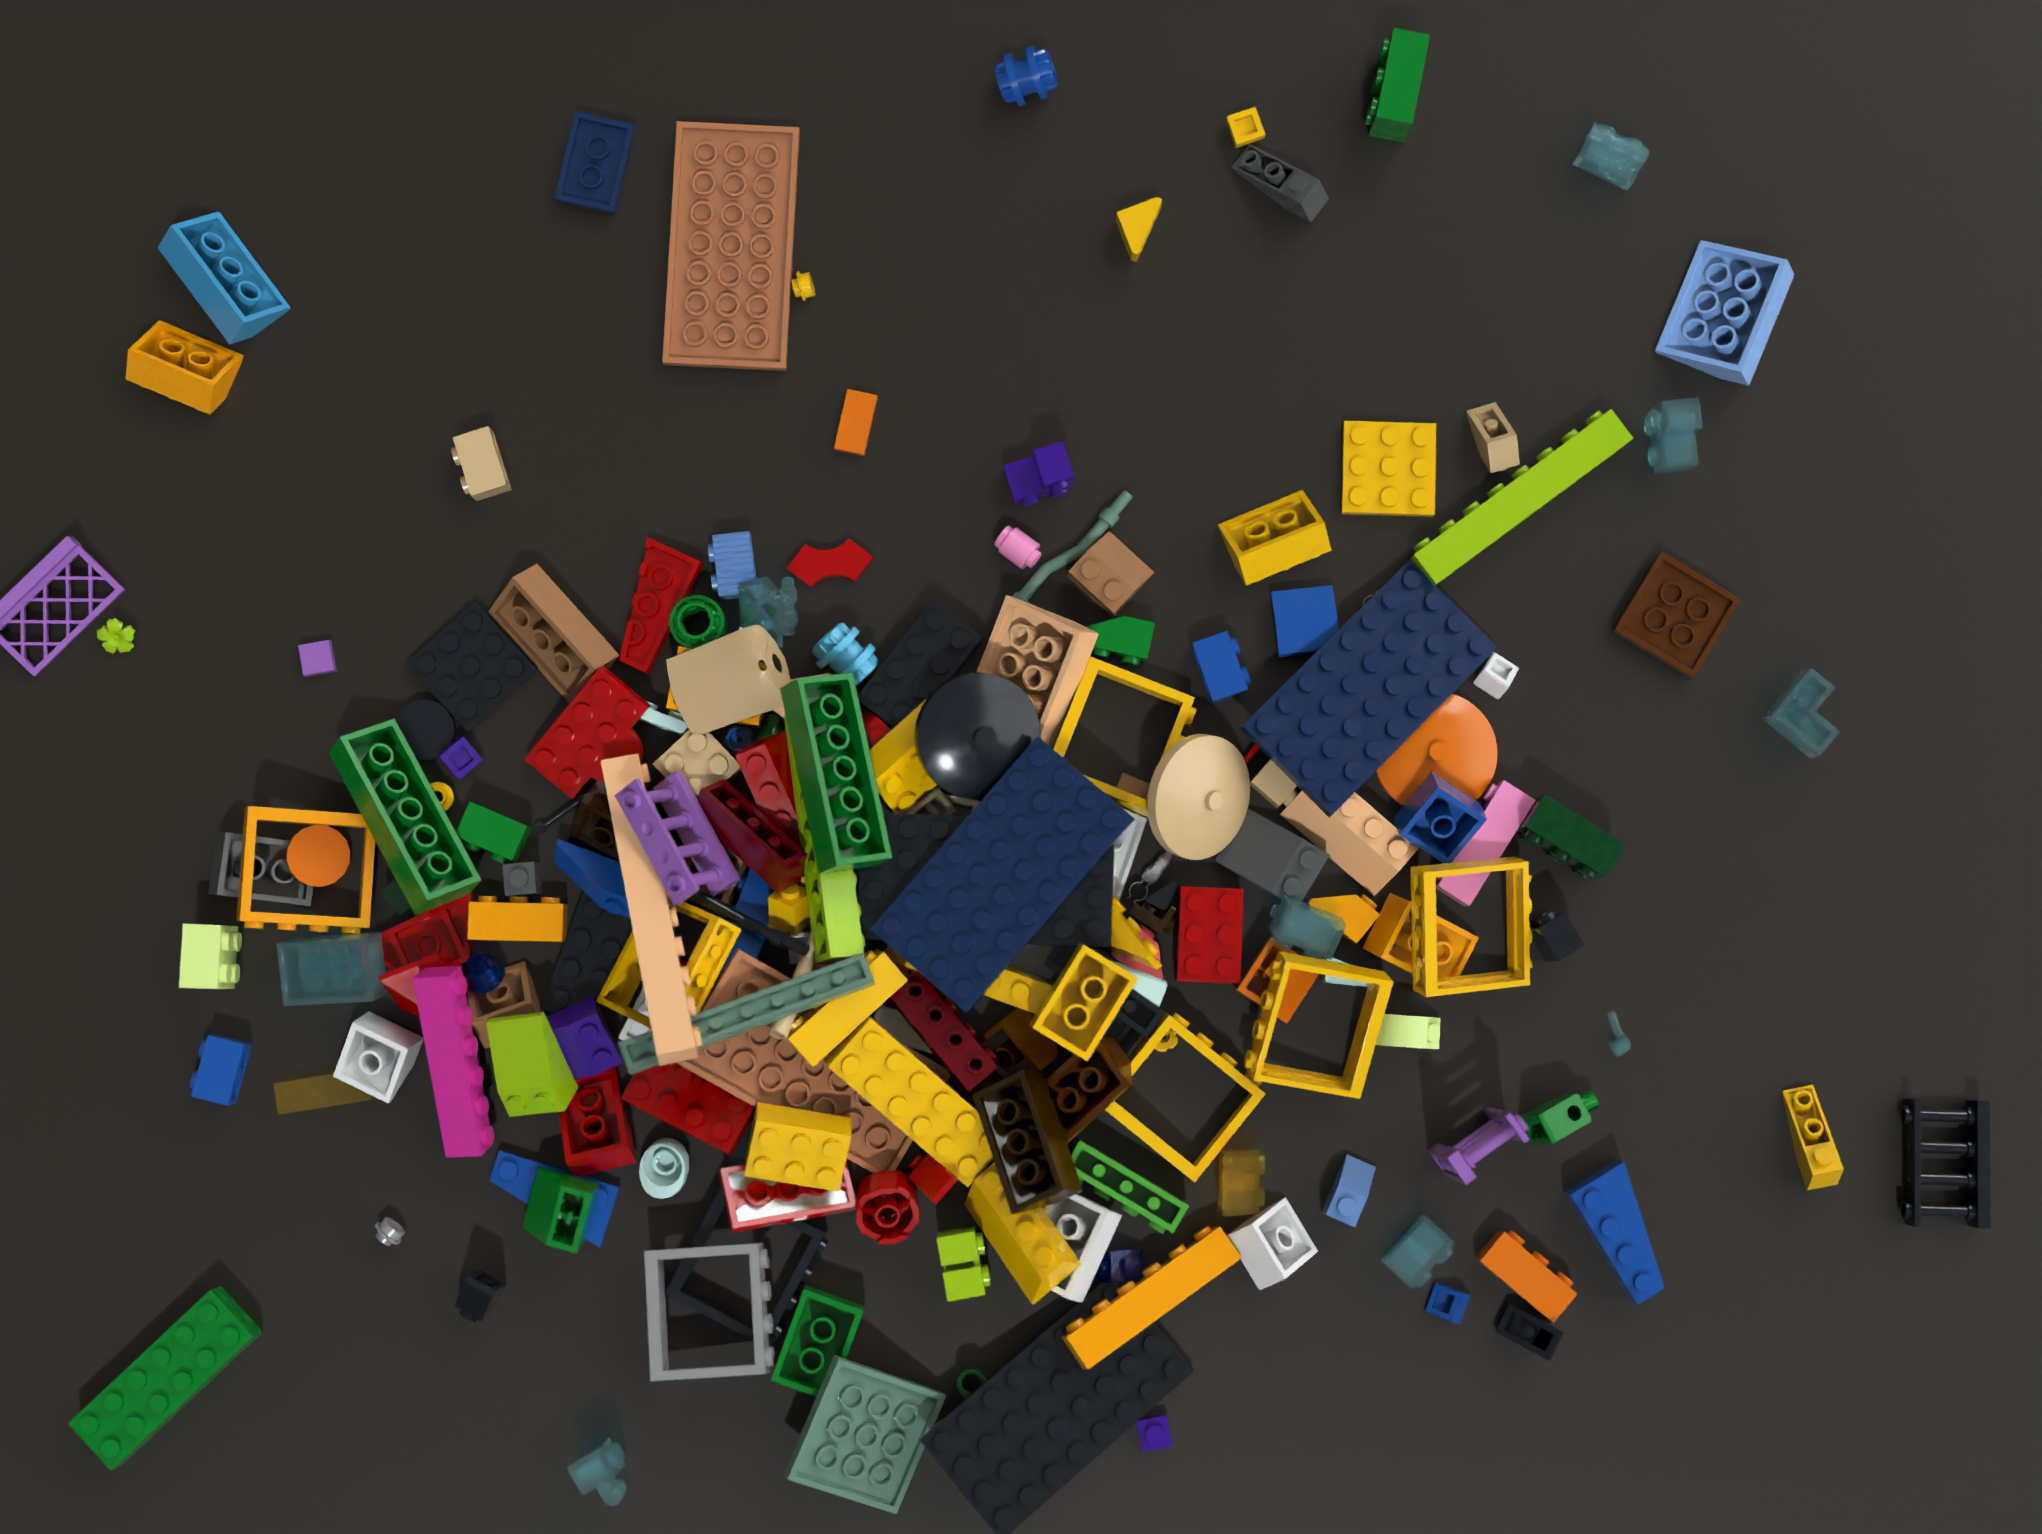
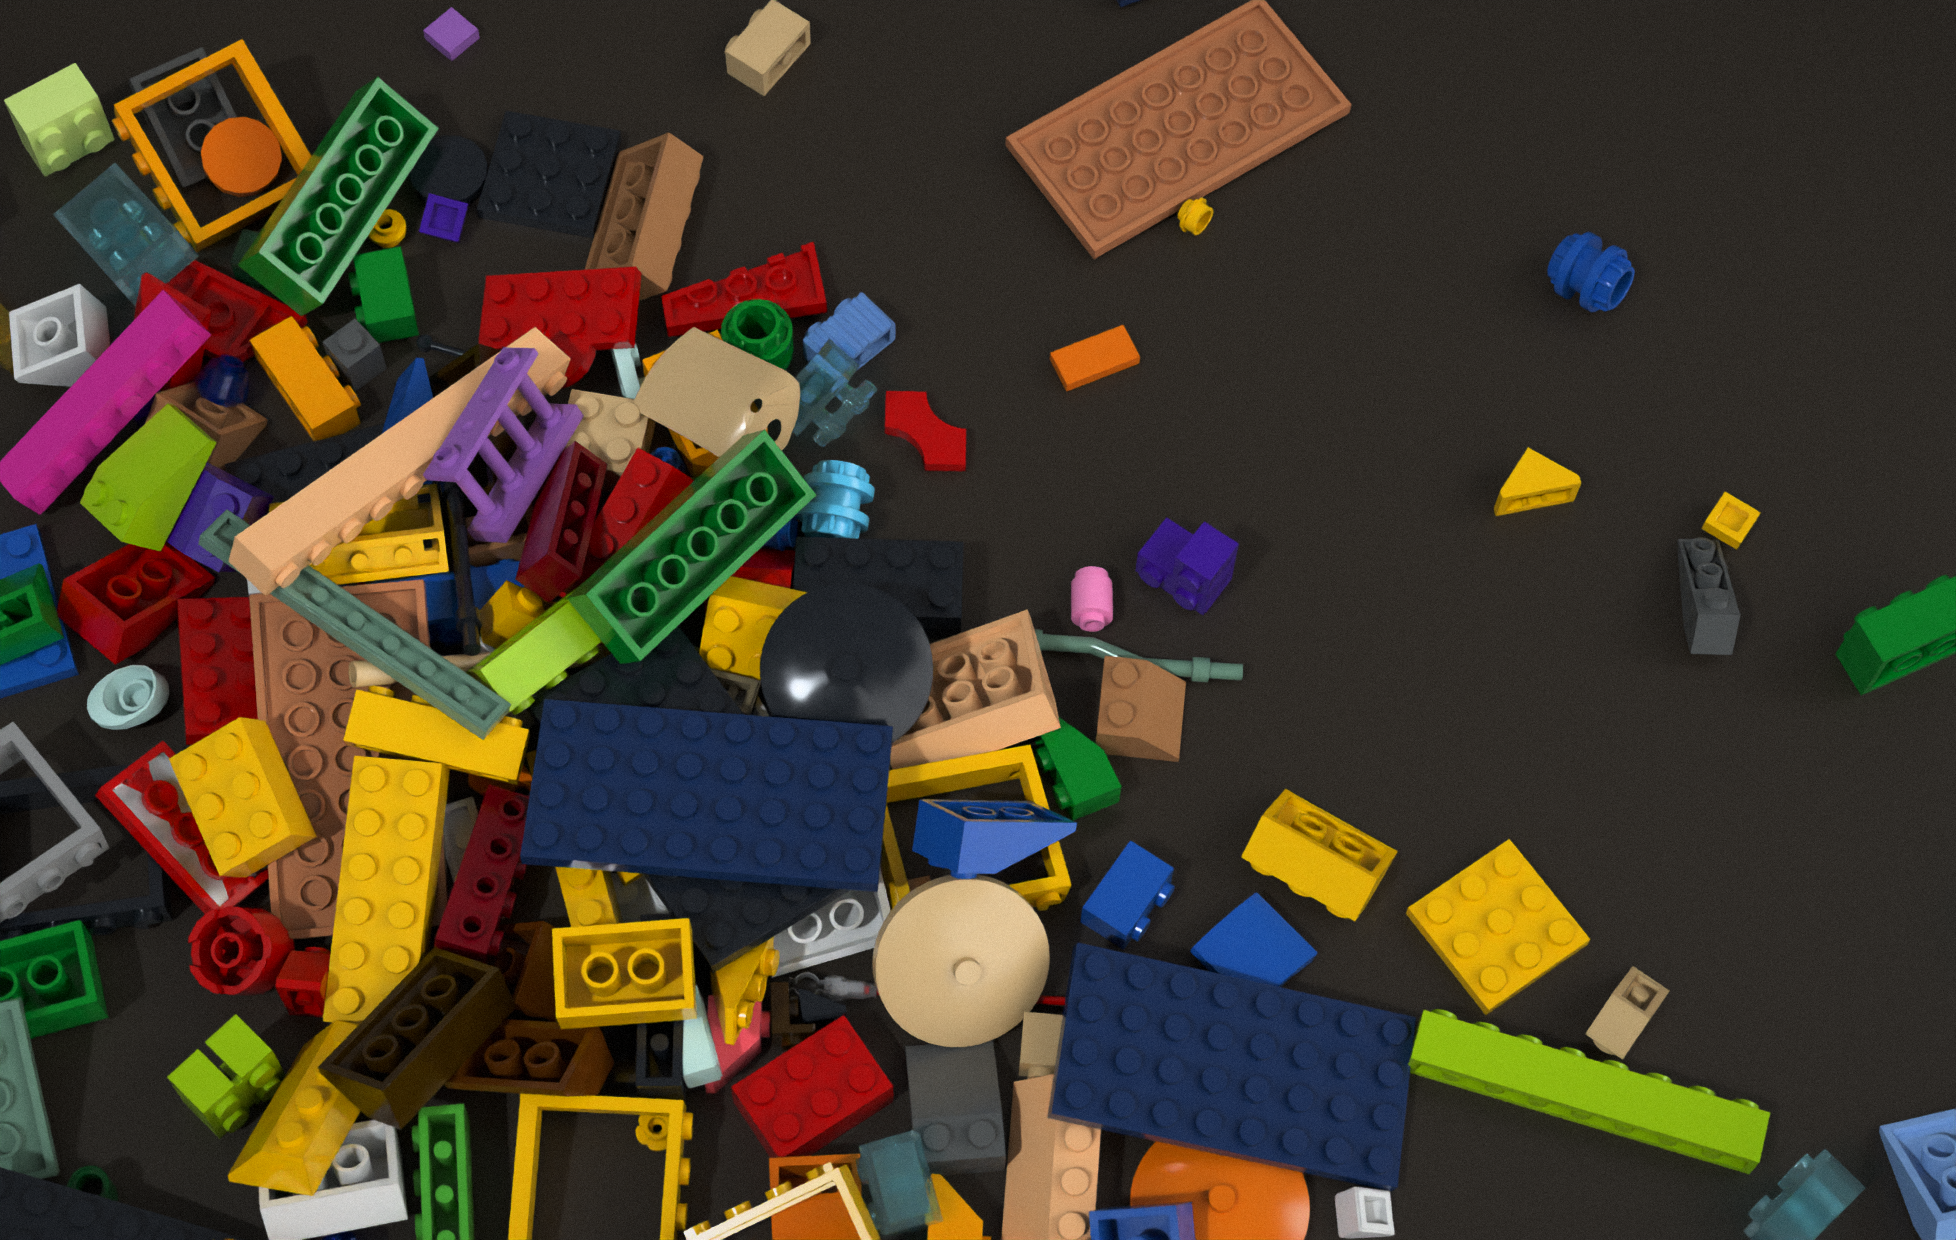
camera: 55 degrees right, 20 degrees down
(1141, 727) = (984, 834): none -> blue slope

